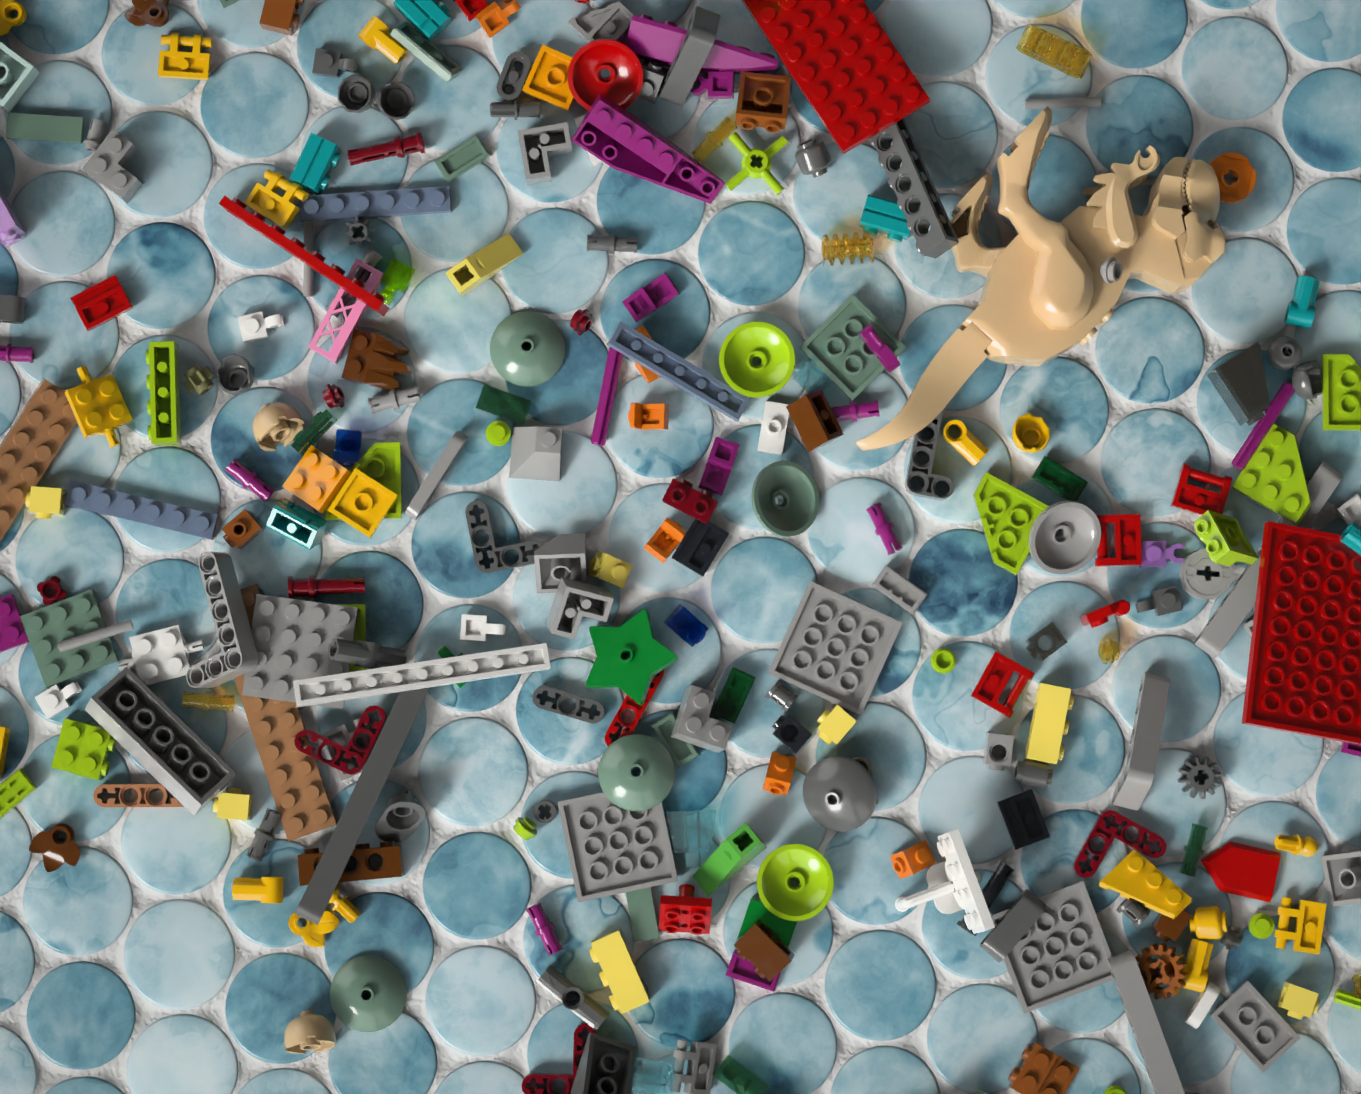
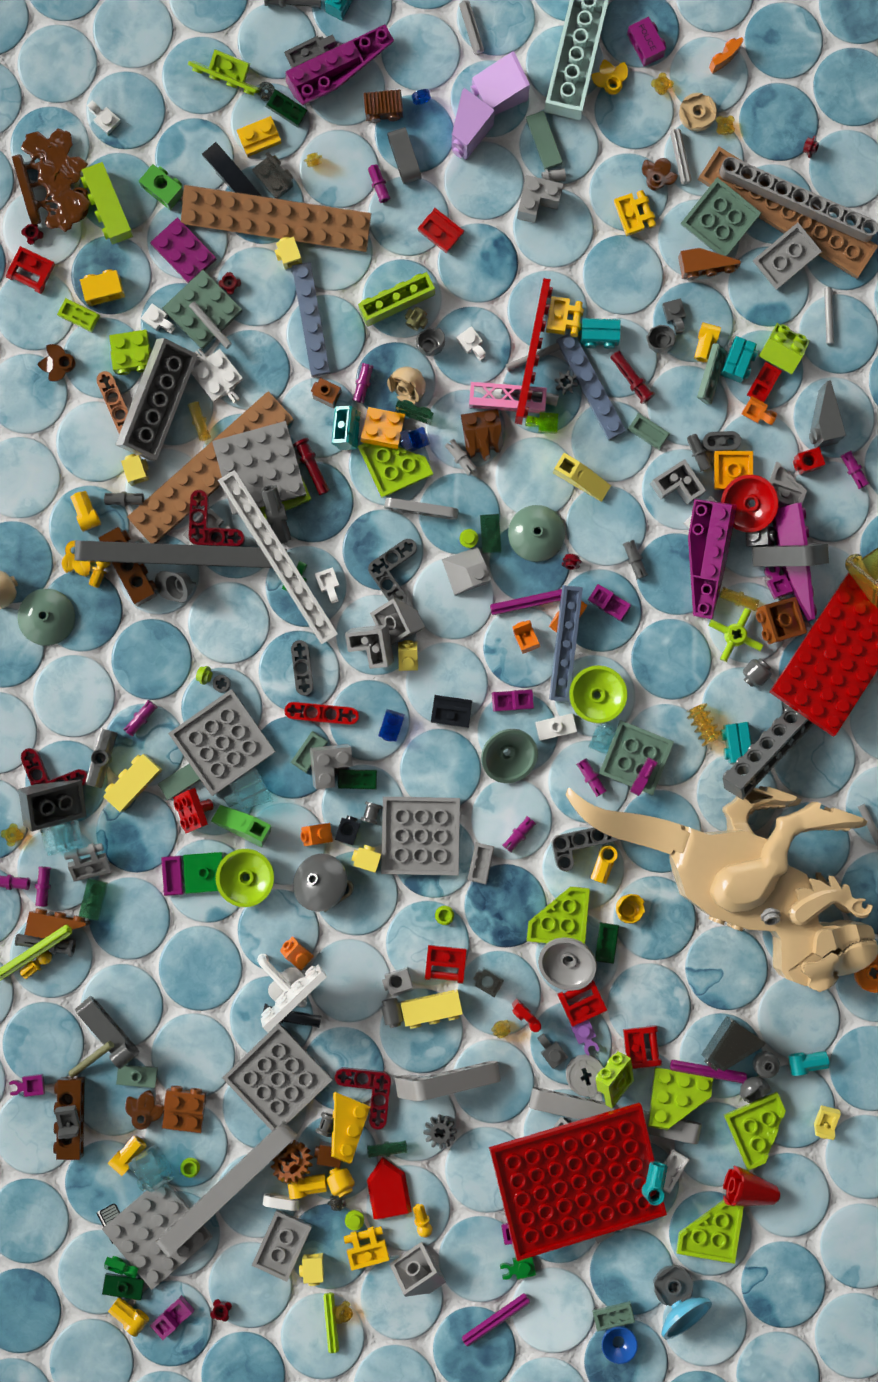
camera: 65 degrees right, 0 degrees up
(98, 406) = (368, 258): yellow plate -> none
(231, 625) = (258, 410): light grey beam -> none
(333, 396) = (445, 414): dark red plate -> none
(363, 503) = (379, 466): yellow plate -> none
(396, 100) = (668, 368): dark grey hair -> none
(638, 671) = (351, 707): green plate -> none
(650, 786) = (281, 747): sand green dish -> none
(665, 540) = (444, 685): orange bracket -> none
(690, 501) = (478, 690): dark red bracket -> none
(763, 950) = (188, 876): reddish brown brick -> none
(814, 420) = (573, 753): reddish brown brick -> none
(1013, 925) = (279, 1044): dark grey beam -> none
(1023, 819) = (357, 1019): black plate -> none

